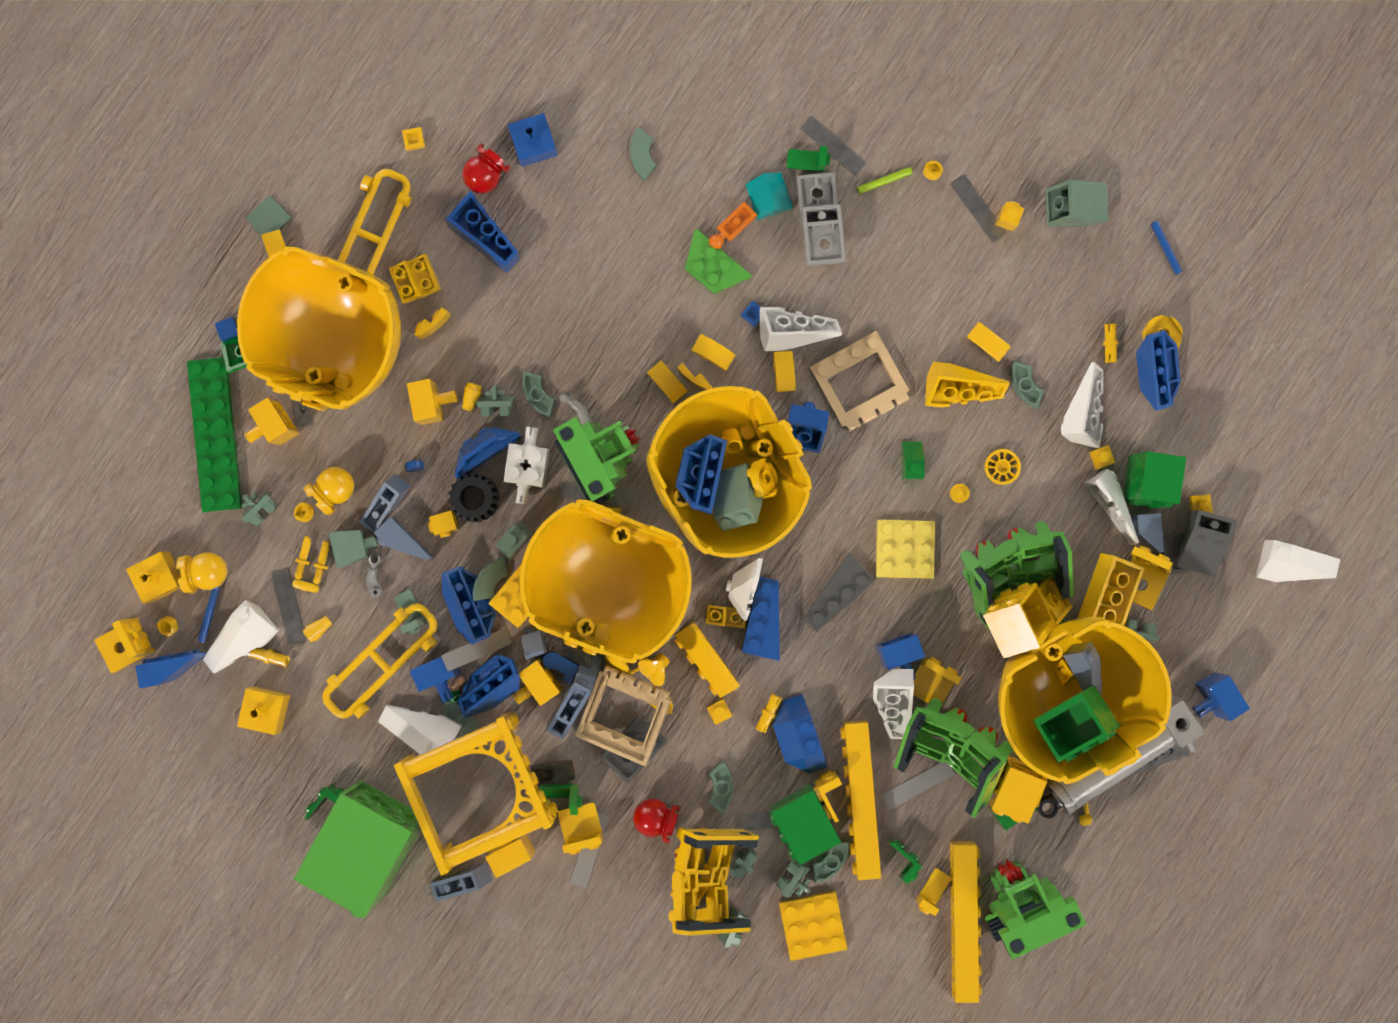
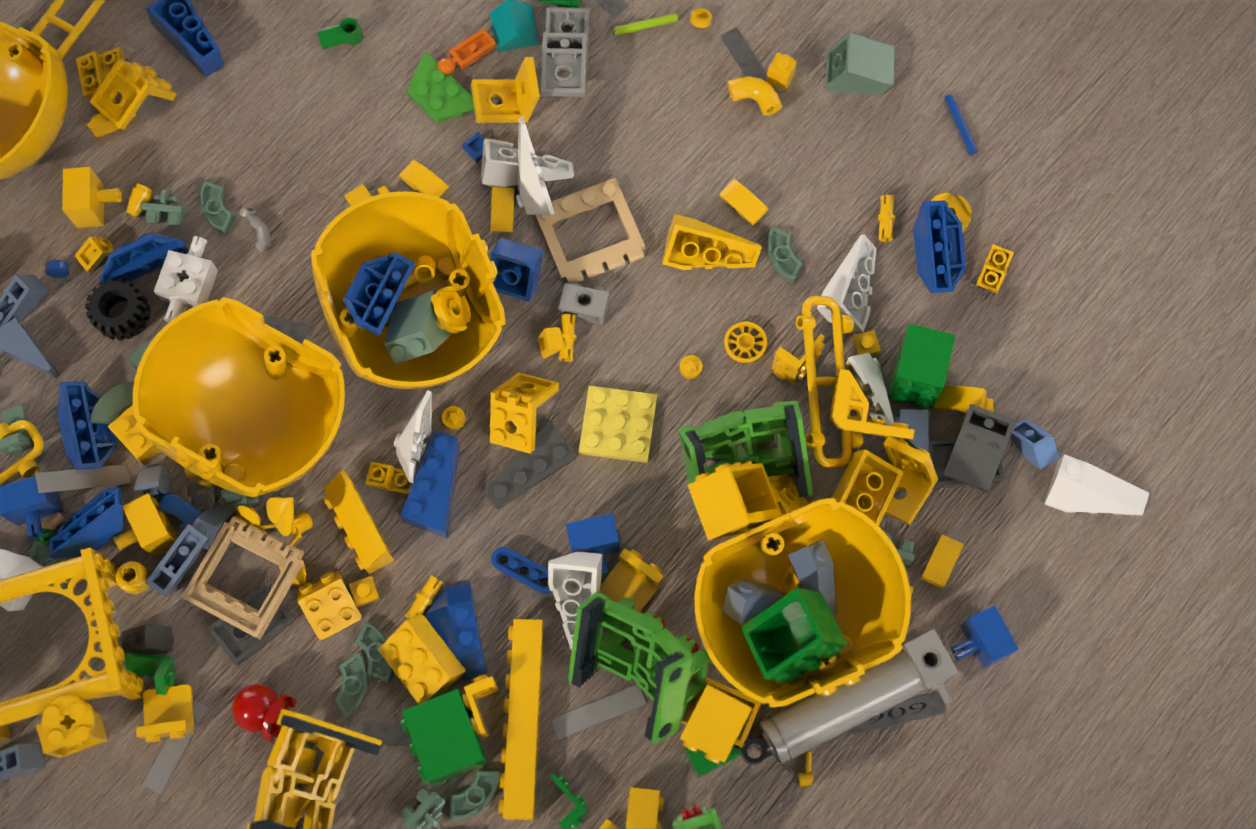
camera: 10 degrees right, 15 degrees down
(442, 448) = (93, 252): none -> yellow bracket
(443, 524) = (77, 335): yellow brick -> none
(450, 292) = (134, 84): none -> yellow bracket
(517, 863) = (76, 709): none -> yellow plate
(526, 724) = (132, 577): none -> yellow head
(578, 449) = (262, 263): bright green container -> none
(615, 220) = (340, 34): none -> green piece
(692, 726) = (328, 605): none -> yellow bracket
(738, 759) = (371, 640): none -> sand green tile
(743, 862) = (361, 779): sand green hips -> none
(770, 559) = (453, 418): none -> yellow tile
(777, 766) = (421, 659): none -> yellow brick
(784, 264) = (516, 96): none -> yellow bracket
(808, 345) = (530, 180): none -> white wedge
(826, 549) = (517, 402): none -> yellow bracket
(841, 485) = (550, 341): none -> yellow slope
(853, 684) = (515, 564): none -> blue plate
(854, 452) = (593, 312): none -> light grey brick
(854, 480) = (568, 336): none -> yellow pin
(913, 461) = (638, 325): green slope -> none
(988, 235) = (755, 89): none -> yellow cylinder
(1037, 694) = (749, 599): none -> slope
(1039, 487) = (789, 367): none -> yellow bracket
(1099, 541) = (841, 325): none -> yellow bar
(1106, 532) = (849, 397): none -> yellow bracket
(1179, 636) = (942, 561): none -> yellow slope
(1192, 500) = (960, 398): none -> yellow slope
(1203, 378) = (994, 268): none -> yellow slope
(1248, 530) = (1034, 443): none -> medium blue slope

